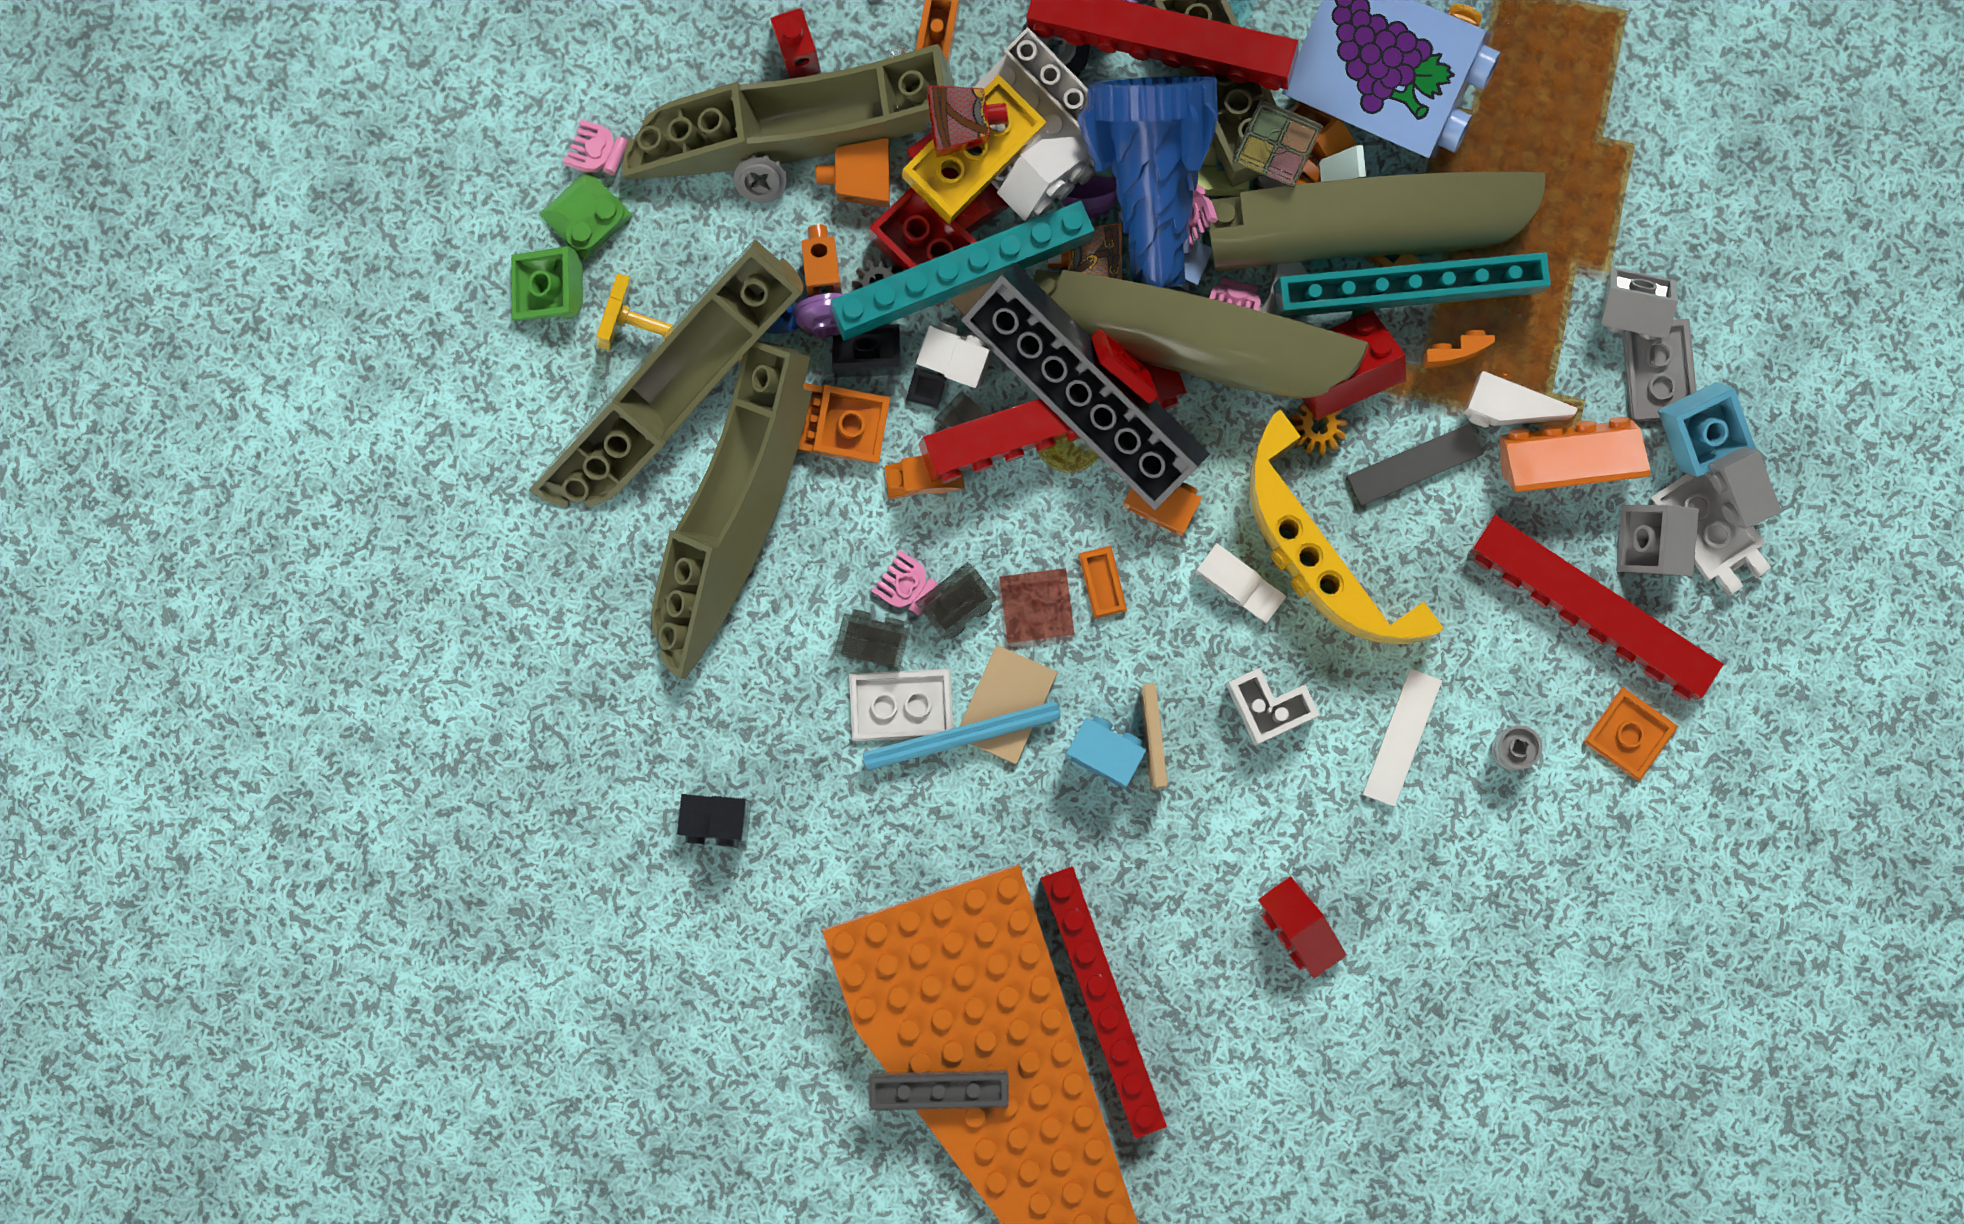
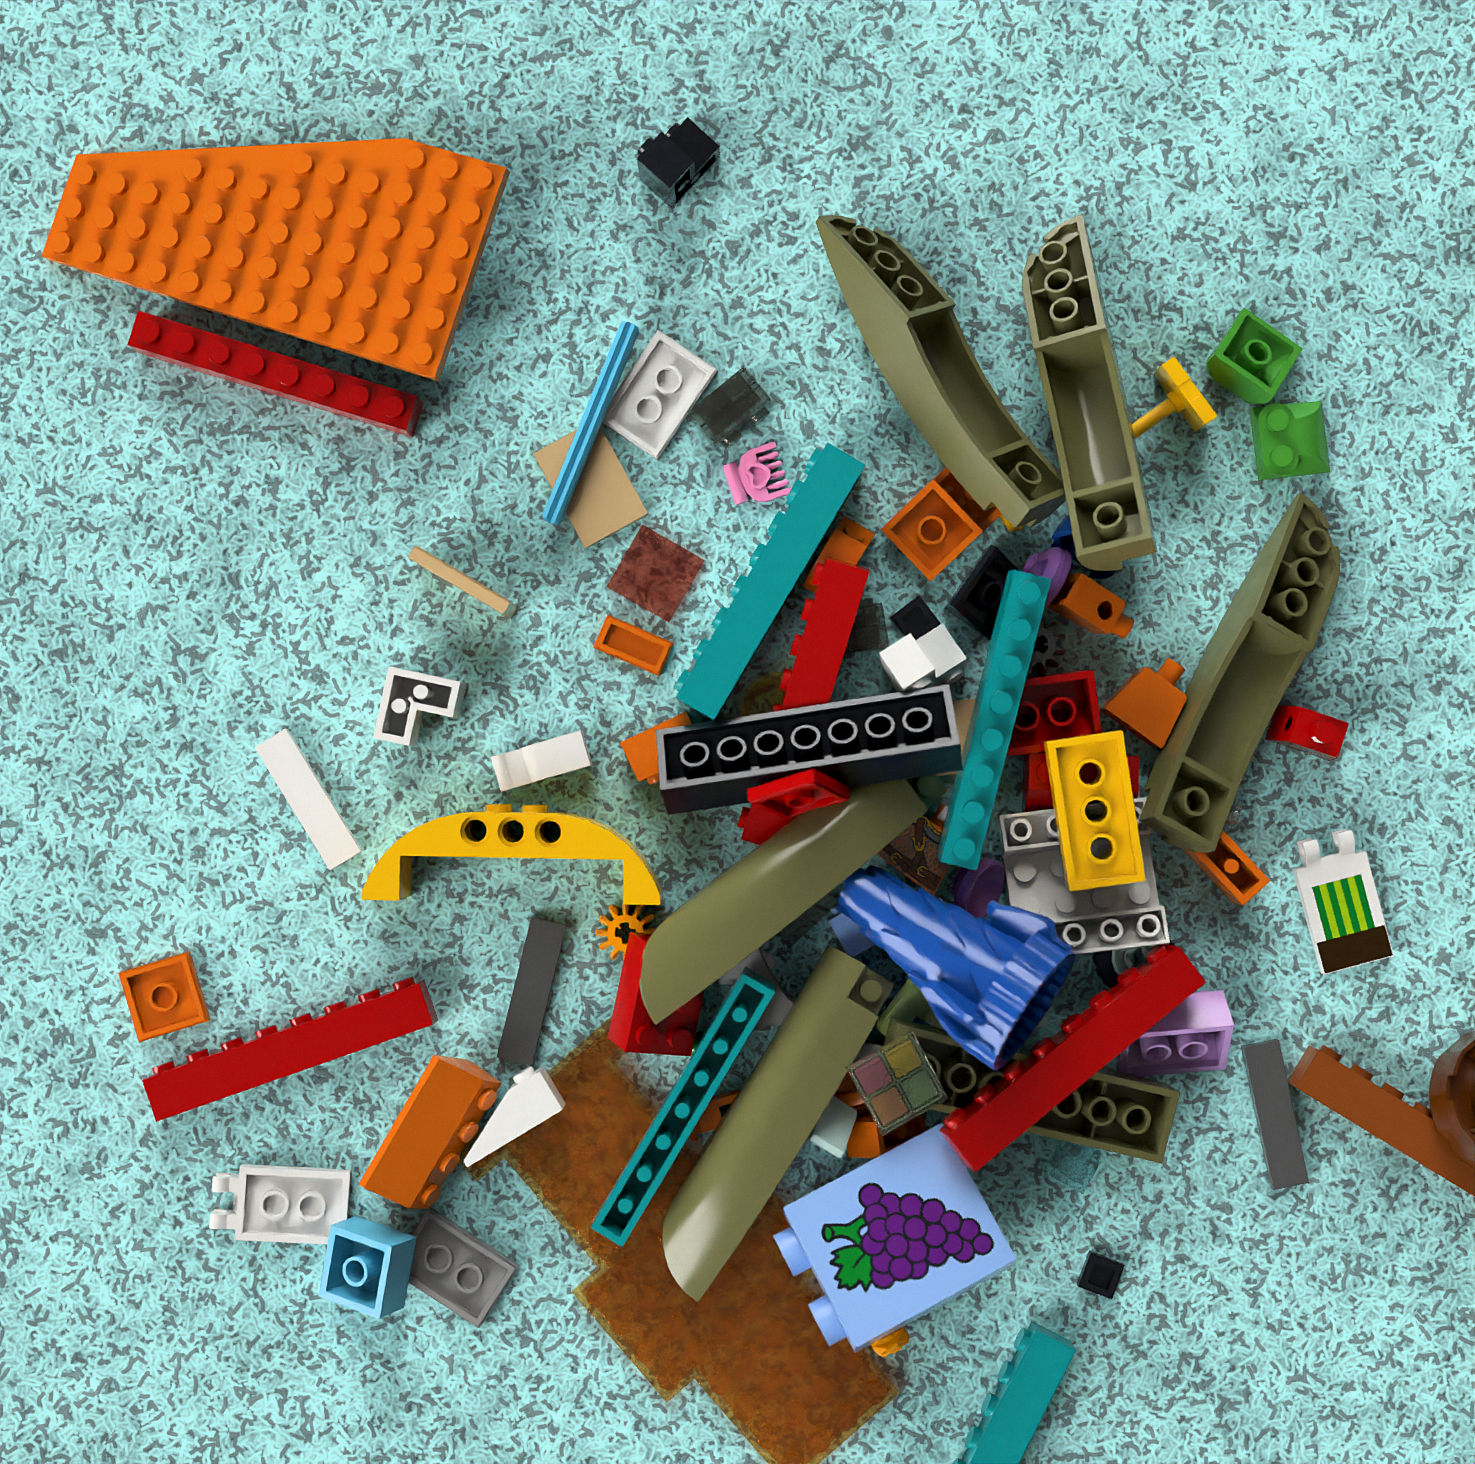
camera: 125 degrees right, 5 degrees up
(599, 150) = (1338, 494): bright pink piece -> none
(760, 190) = (1198, 607): light grey gear -> none
(938, 1090) = (300, 170): dark grey tile -> none
(956, 601) = (709, 504): clear smoke brick -> none
(961, 118) = (1129, 815): torso -> none
(983, 510) = (770, 582): none -> teal brick
(1045, 174) = (1023, 857): white slope -> none
(1106, 752) = (481, 532): medium azure brick -> none
(1202, 213) = (885, 969): bright pink piece -> none
(1236, 293) = (793, 947): bright pink piece -> none
(1301, 928) = (208, 586): red brick -> none
(1467, 347) = (595, 1113): orange slope -> none
(1516, 748) = (221, 887): light grey wheel -> none
(1639, 304) = (521, 1295): light grey slope -> none
(1657, 540) = (305, 1148): light grey slope -> none
(1744, 488) = (289, 1258): light grey brick -> none

